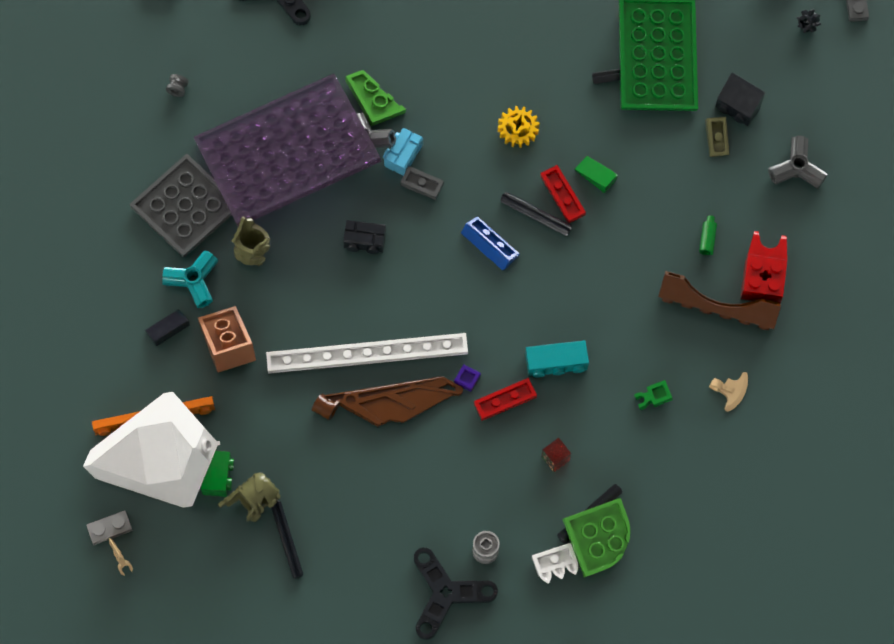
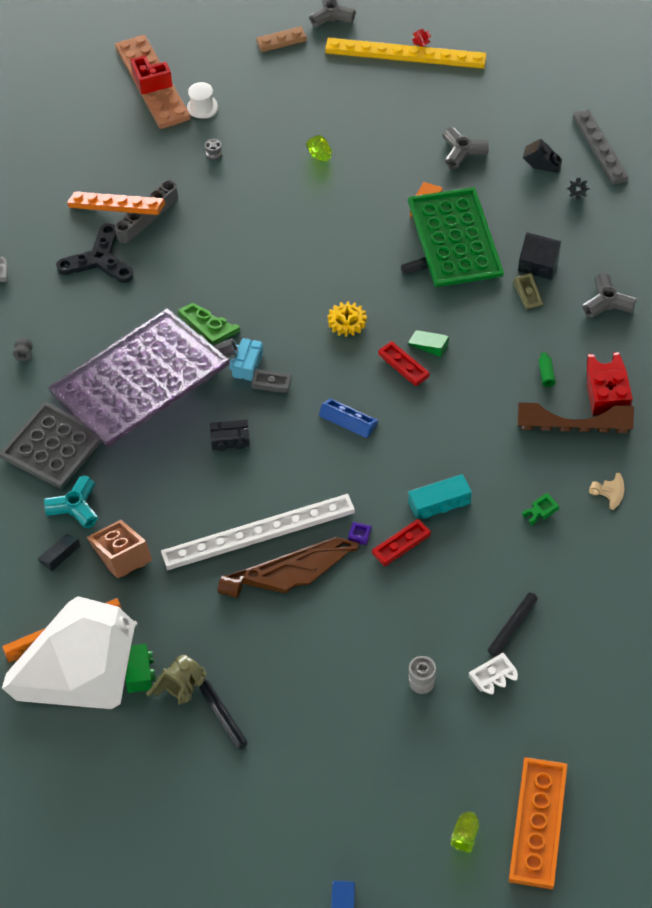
camera: 10 degrees left, 15 degrees down
(109, 527) = (40, 743): light grey plate -> none
(119, 557) = (55, 763): tan piece -> none
(250, 243) = (123, 459): olive helmet -> none
(439, 605) = (390, 739): black piece -> none
(536, 213) = (382, 384): black axle -> none
(556, 454) = (465, 578): clear red brick -> none
(599, 536) = (528, 640): bright green plate -> none

